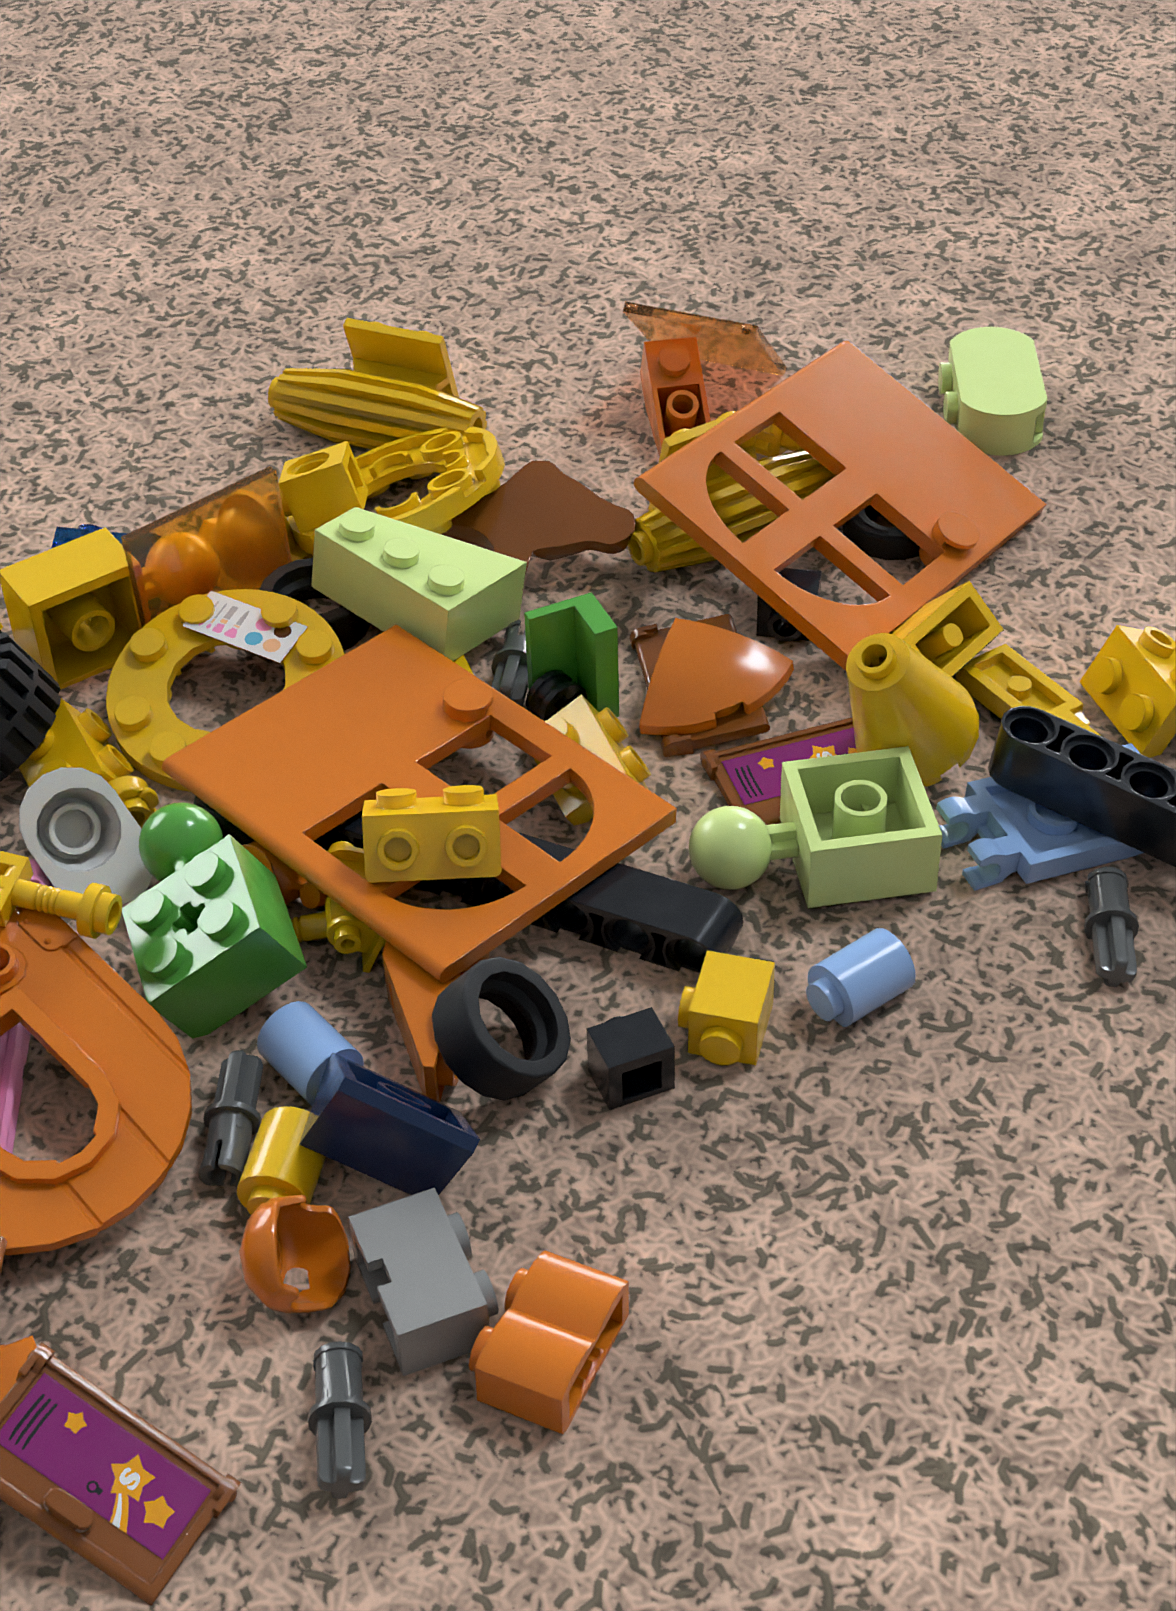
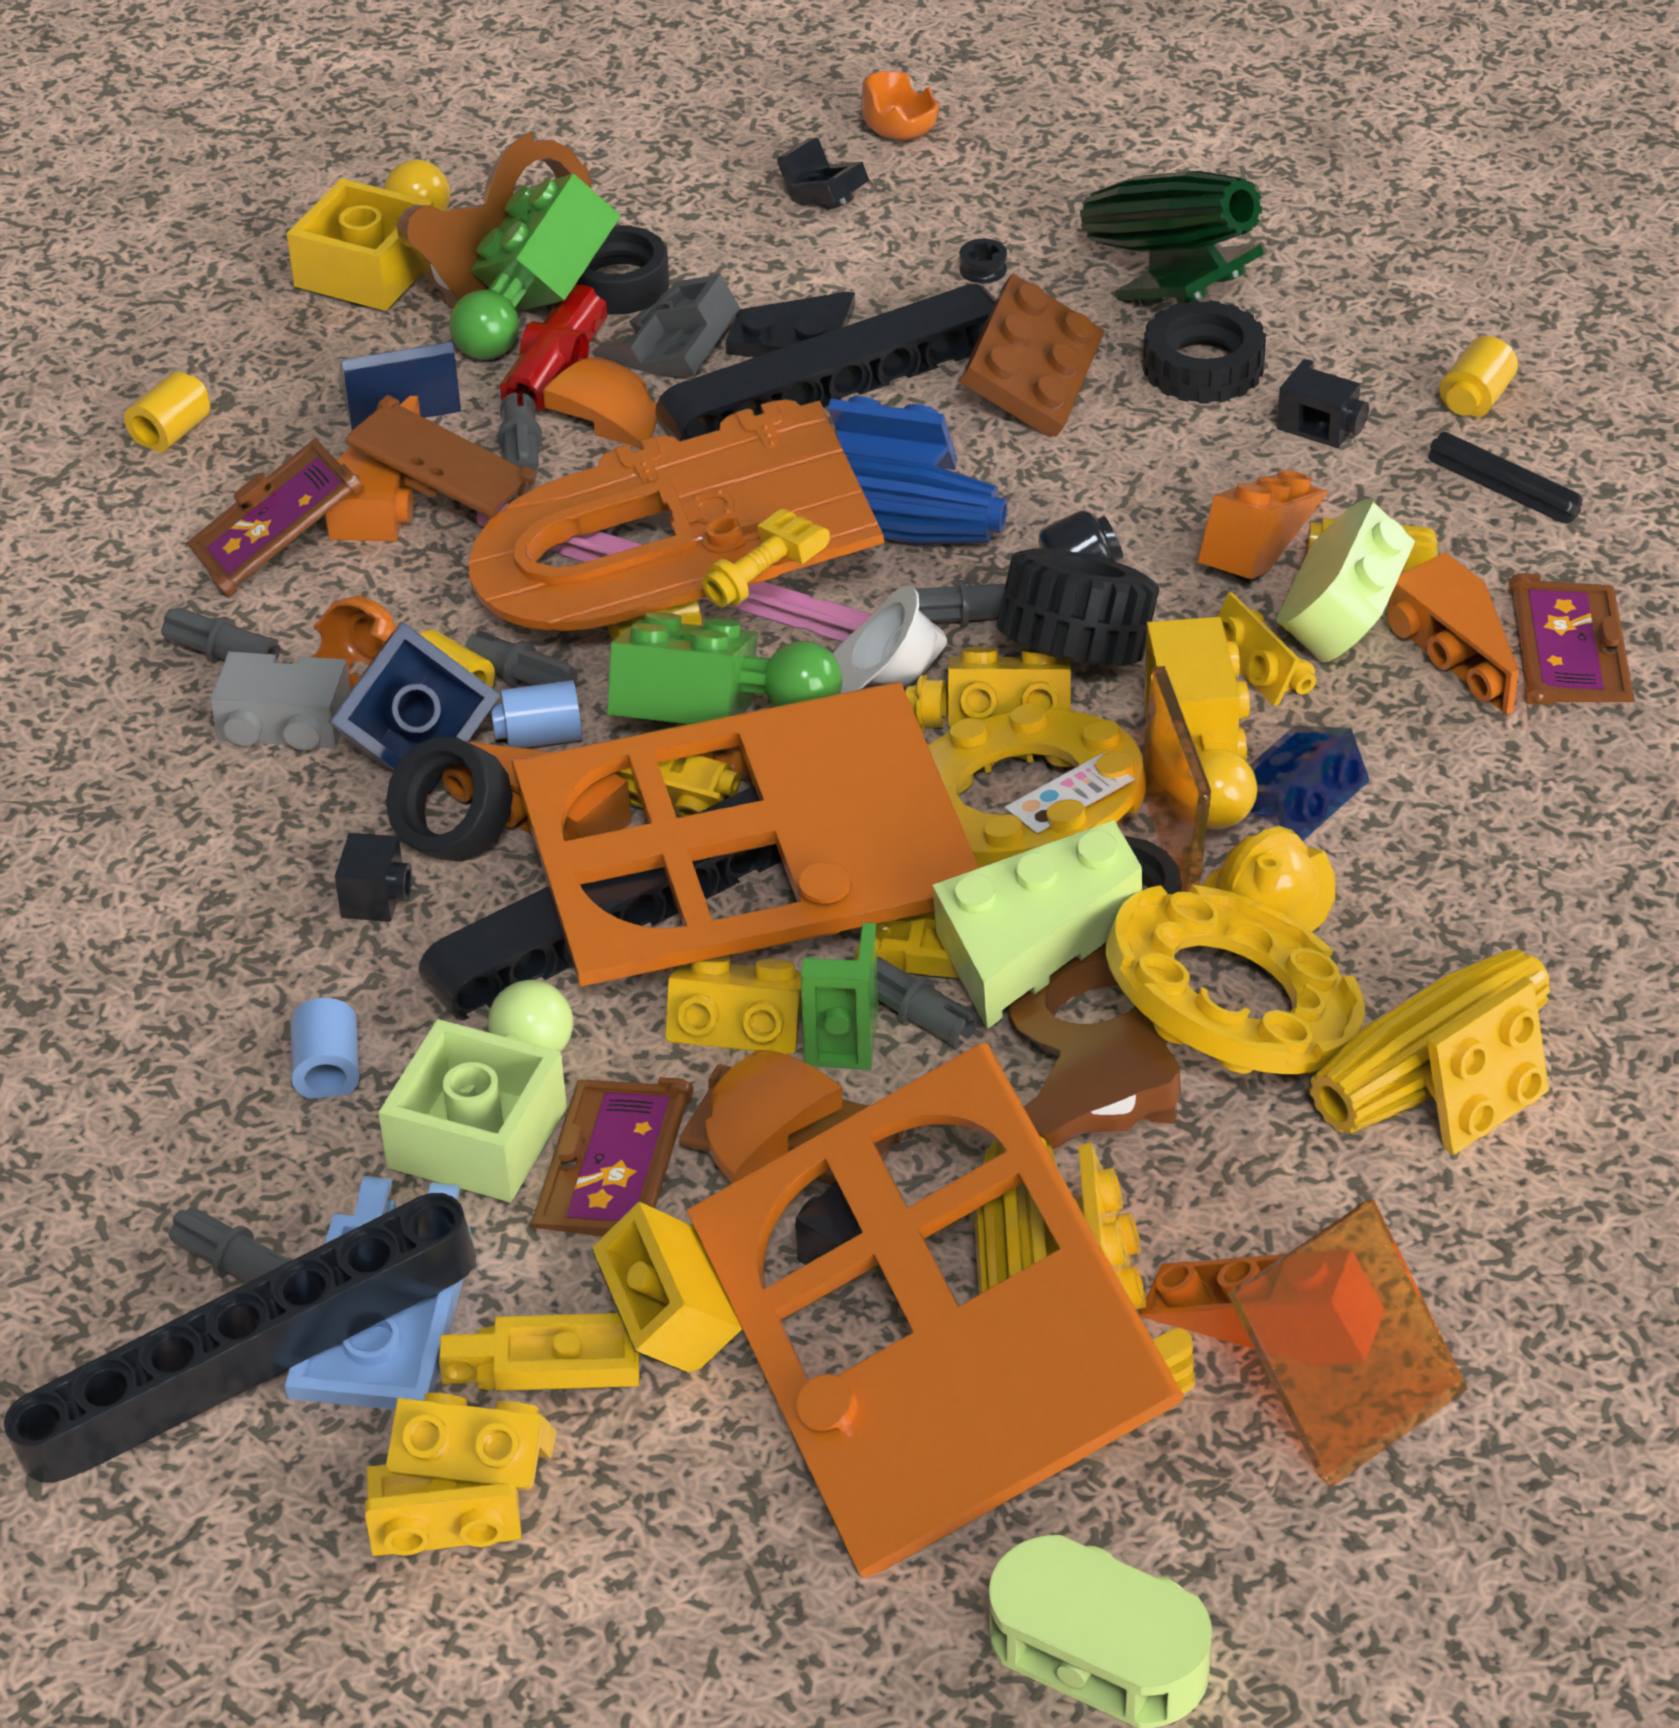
camera: 120 degrees right, 0 degrees up
(321, 486) = (1239, 892): yellow brick -> none
(431, 835) = (657, 783): yellow bracket -> none
(549, 1340) = (176, 747): orange brick -> none
(728, 1008) = (365, 954): yellow brick -> none
(909, 702) = (550, 1155): yellow cone -> none

